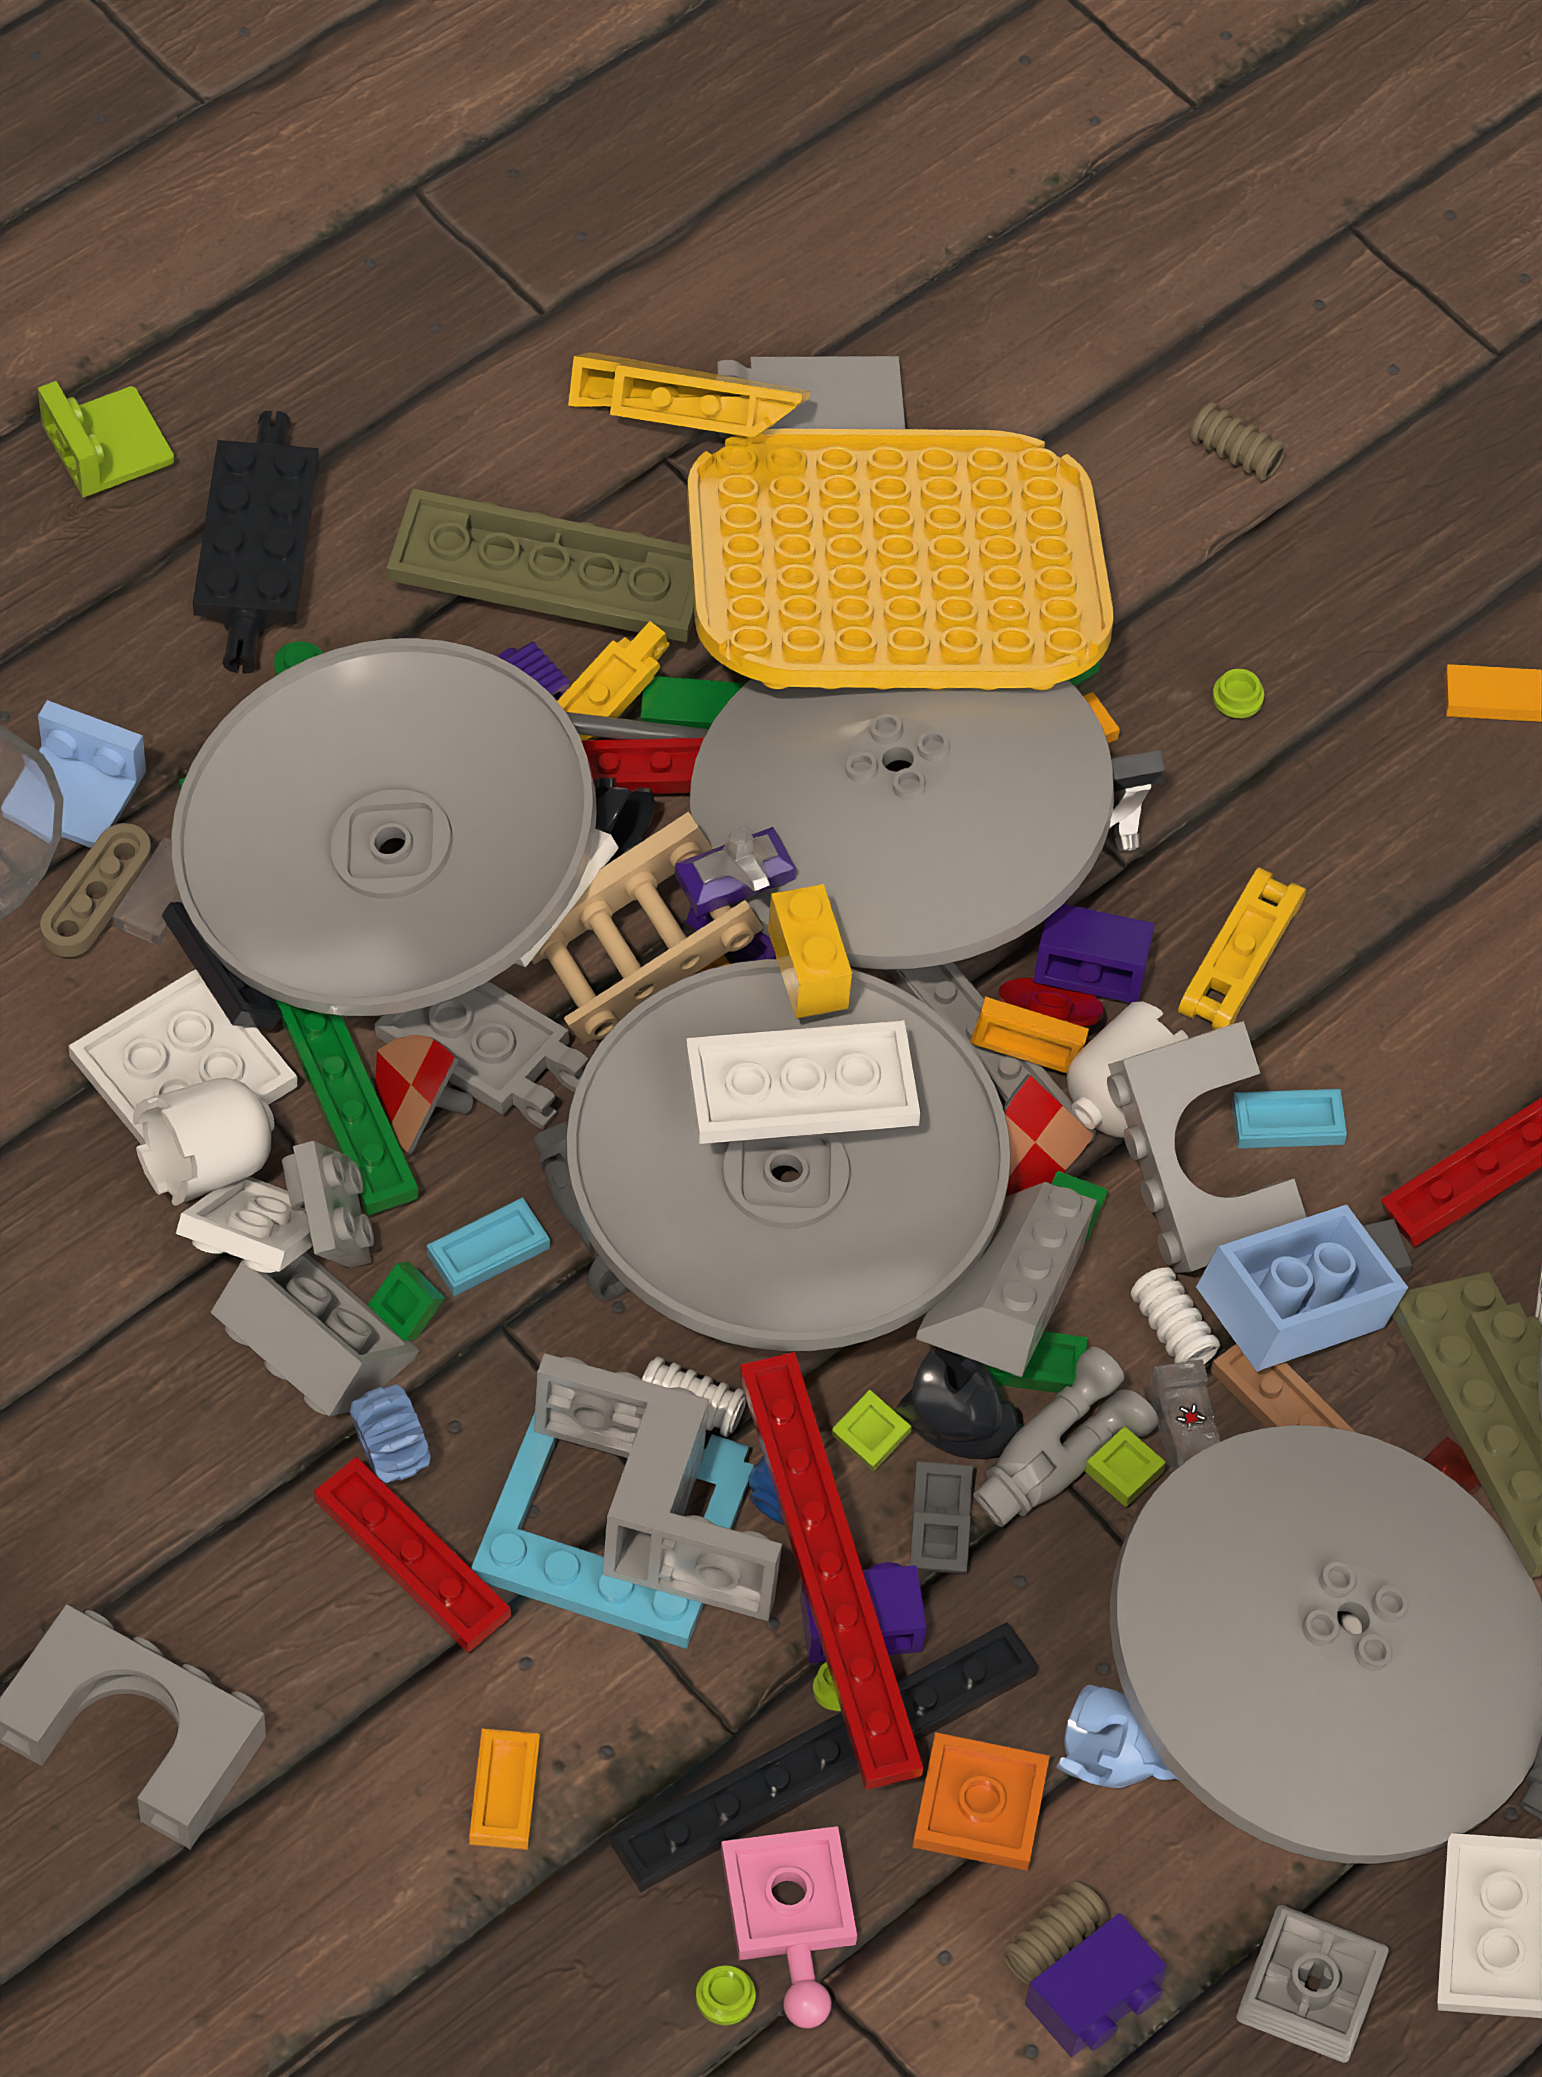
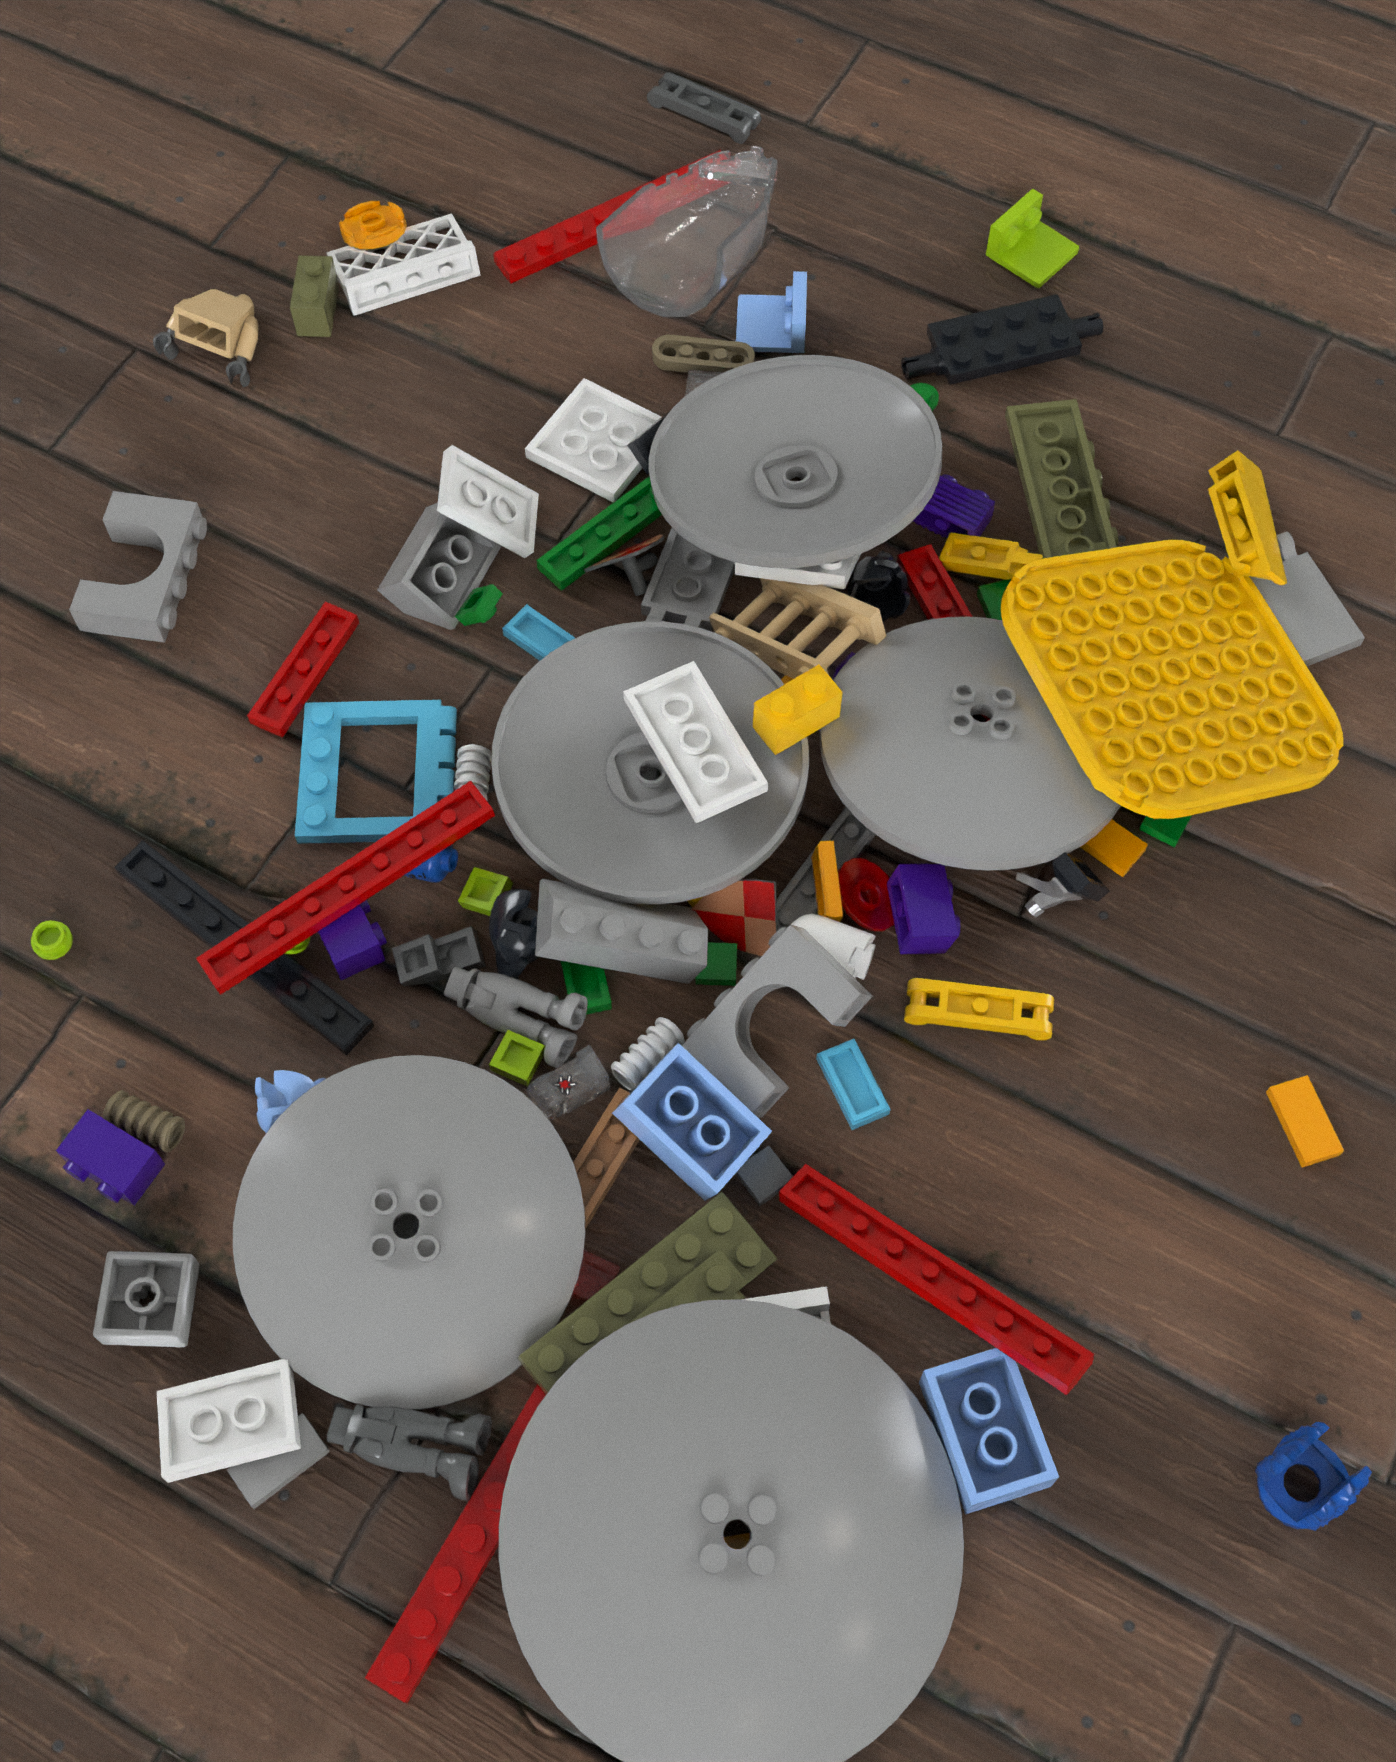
camera: 75 degrees right, 5 degrees up
(203, 1137) = (533, 452): white cylinder -> none
(328, 1190) = (514, 533): light grey plate -> none
(390, 1433) = (373, 623): medium blue gear -> none
(504, 1789) = (163, 774): light orange tile -> none
(630, 729) = (958, 575): dark grey bar -> none
(645, 1528) = (371, 768): light grey bracket -> none
(735, 870) = (849, 652): piece -> none
(772, 1928) = (103, 948): bright pink plate -> none
(981, 1801) = (229, 1045): orange plate -> none
(1238, 693) = (1200, 940): lime plate -> none

